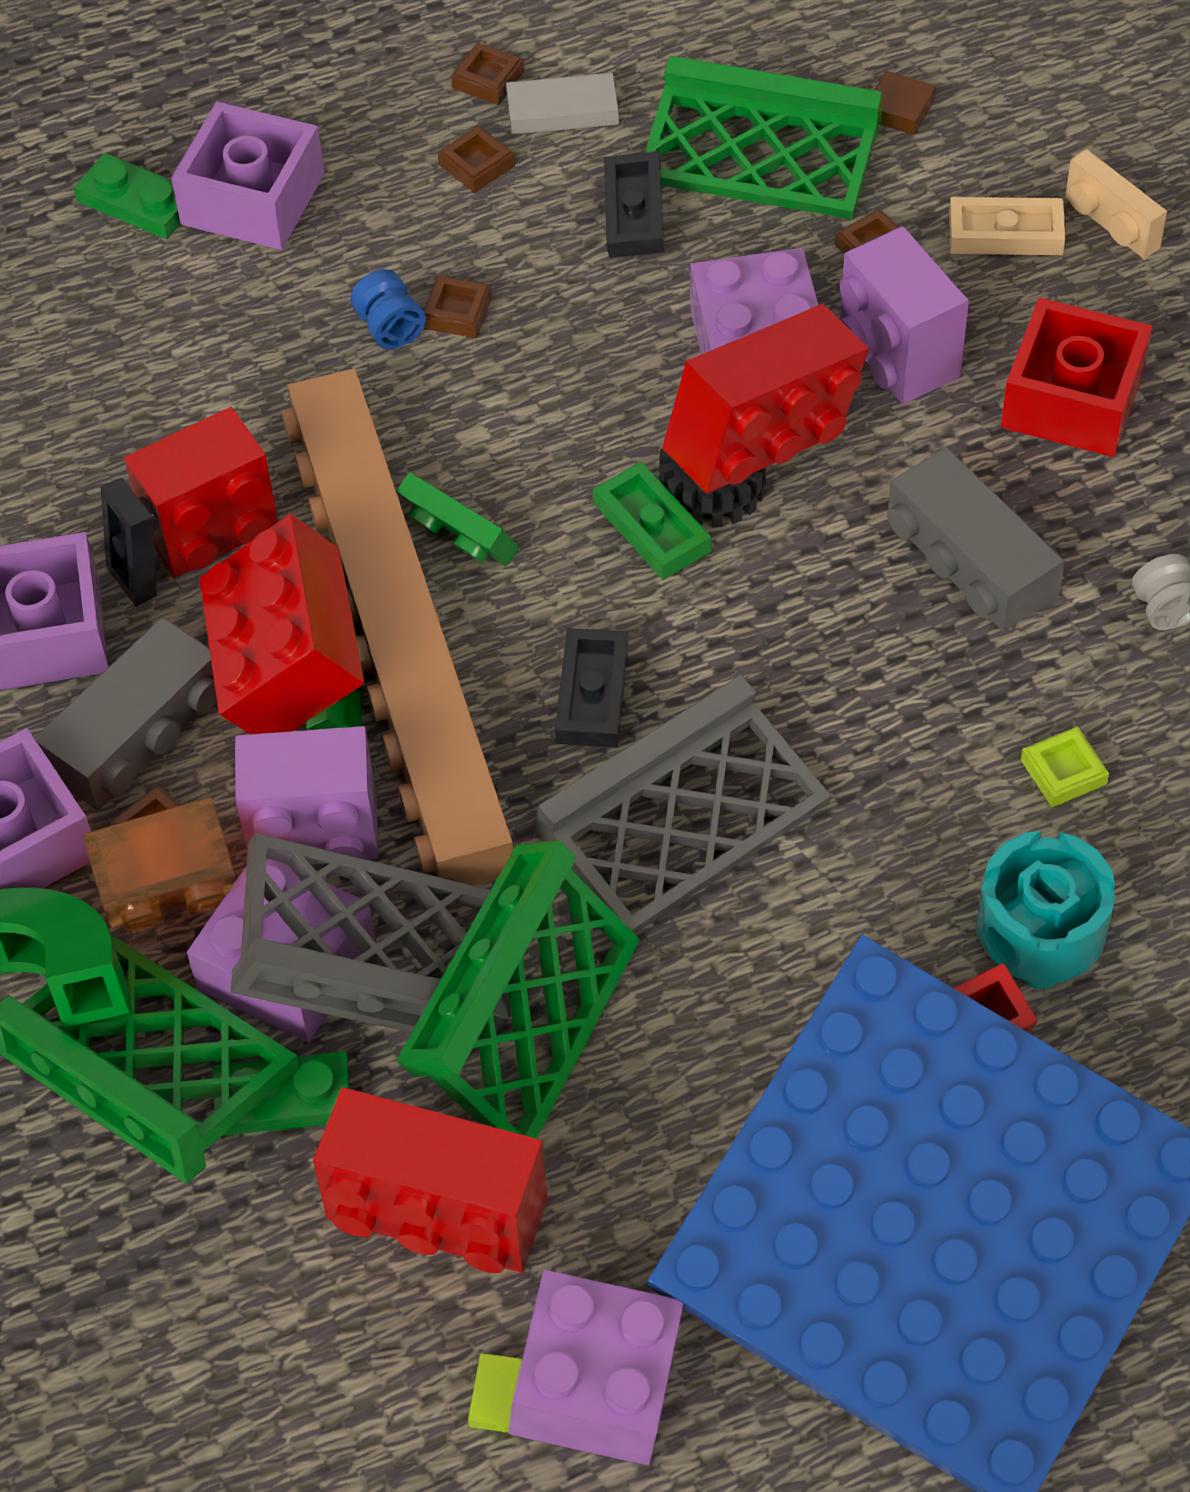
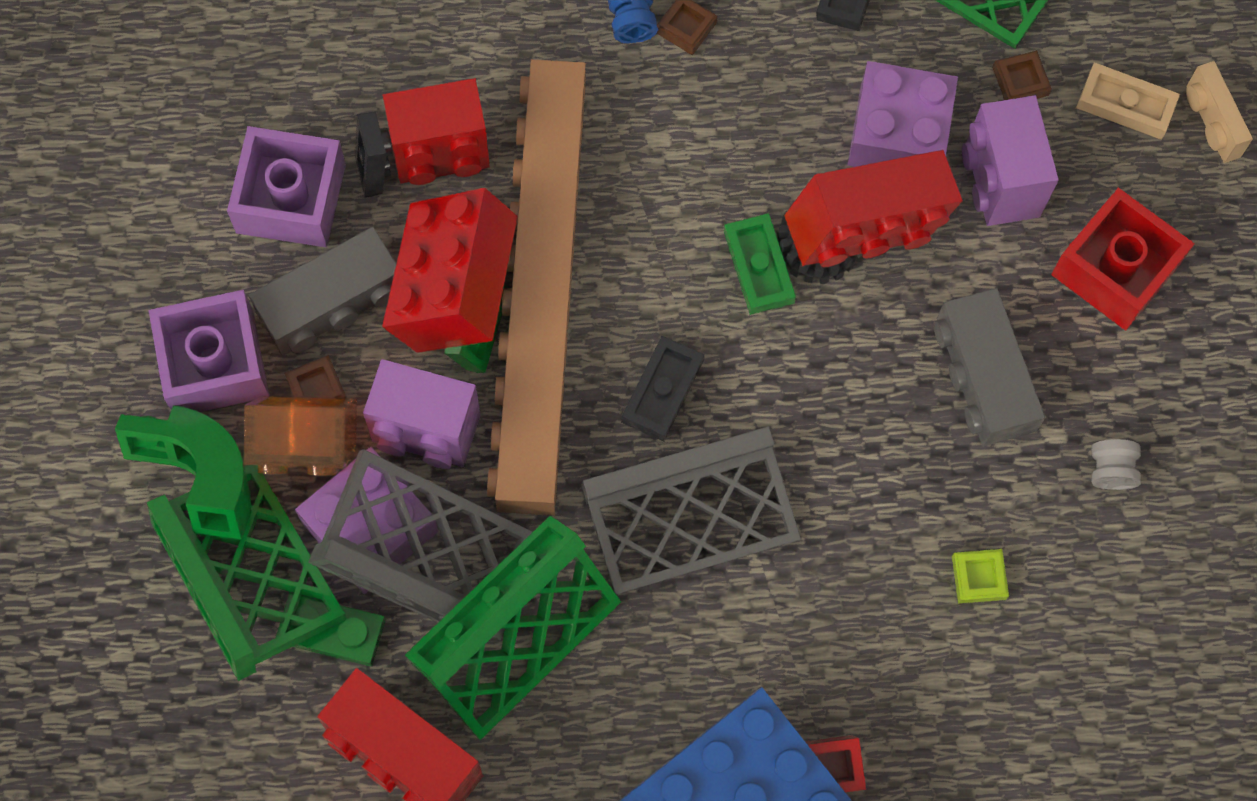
camera: 15 degrees right, 15 degrees up
(474, 533) = (605, 201): green plate -> none
(1045, 907) = (914, 692): teal brick -> none

